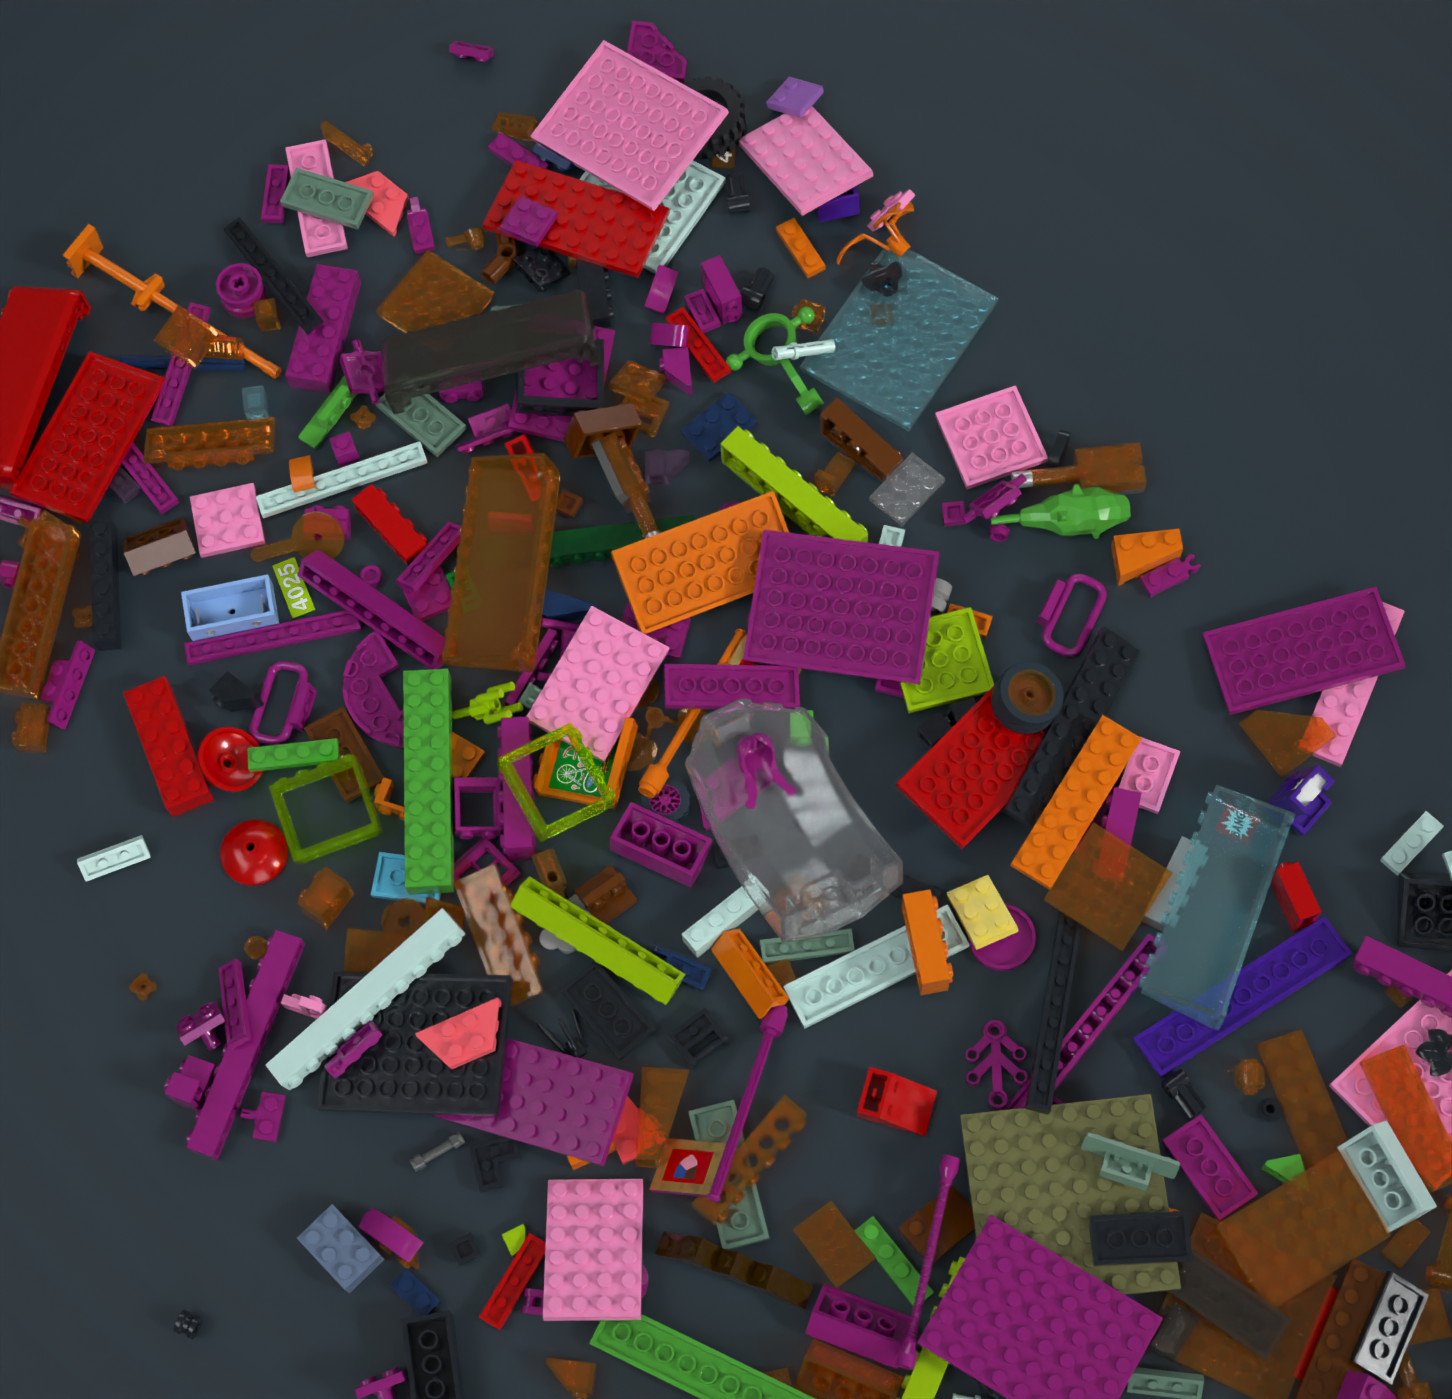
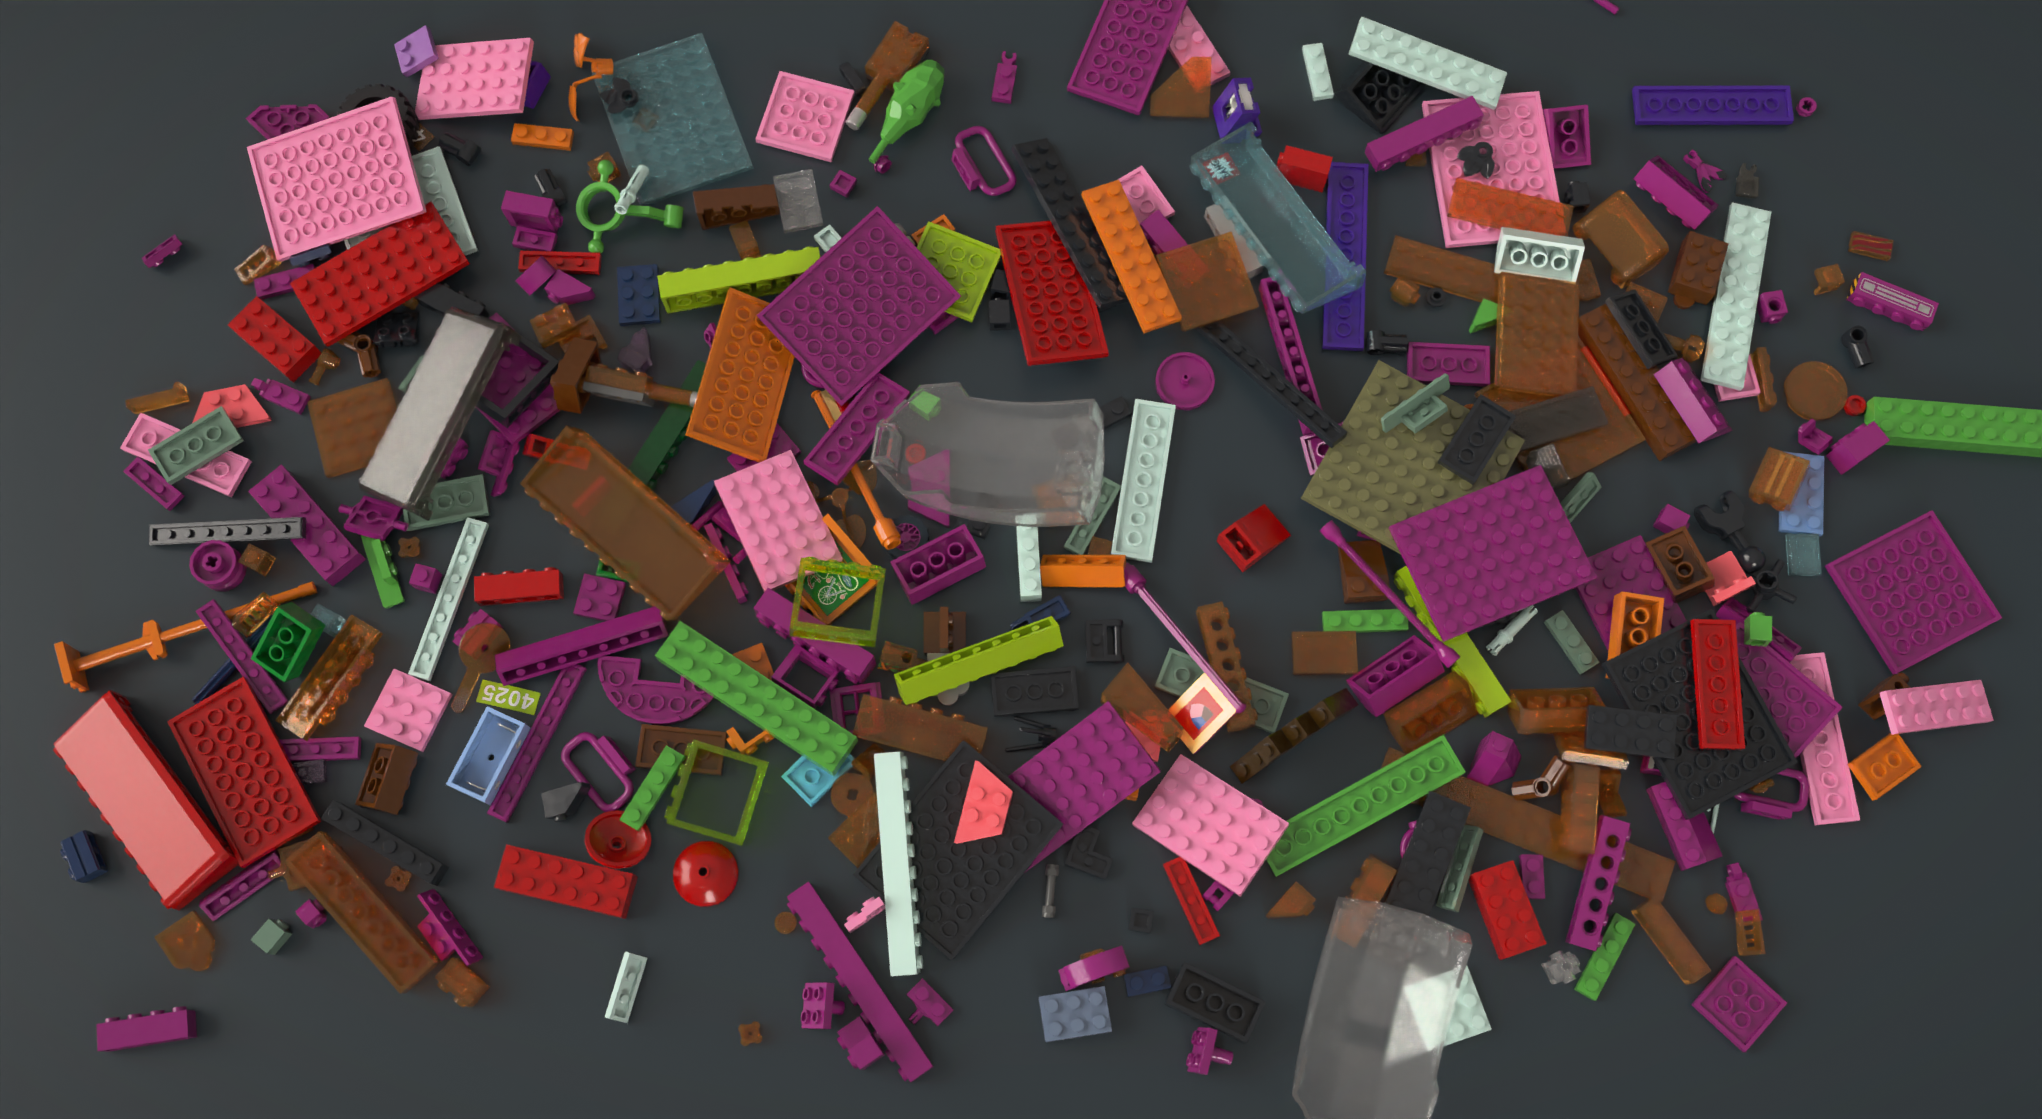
camera: 60 degrees left, 5 degrees up
(186, 337) = (226, 633): clear orange brick -> none
(214, 387) = (288, 641): none -> green brick
(234, 1003) = (822, 968): magenta tile -> none
(301, 473) = (418, 625): orange slope -> none
(325, 897) = (790, 840): clear orange brick -> none
(353, 1049) = (929, 898): magenta hinge -> none
(371, 575) = (548, 630): magenta tile -> none
(430, 557) = (572, 573): magenta plate -> none
(460, 186) = (275, 339): none -> red brick
(488, 707) = (732, 612): lime plant -> none
(515, 1239) = (1159, 878): lime tile -> none
(528, 221) = (354, 307): magenta plate -> none
(530, 696) = (748, 577): sand green tile -> none
(568, 504) = (612, 443): reddish brown plate -> none
(661, 289) = (492, 256): magenta slope -> none
(759, 752) = (926, 442): magenta hair -> none
(904, 198) = (566, 49): bright pink plate -> none
(925, 942) = (1157, 429): orange brick -> none
(982, 912) = (1159, 379): light yellow plate -> none
(994, 499) = (858, 146): magenta plate -> none
(996, 1060) = (1272, 449): magenta plant -> none
(1027, 697) = (1030, 231): wheel -> none
(1143, 552) = (976, 81): orange wedge -> none

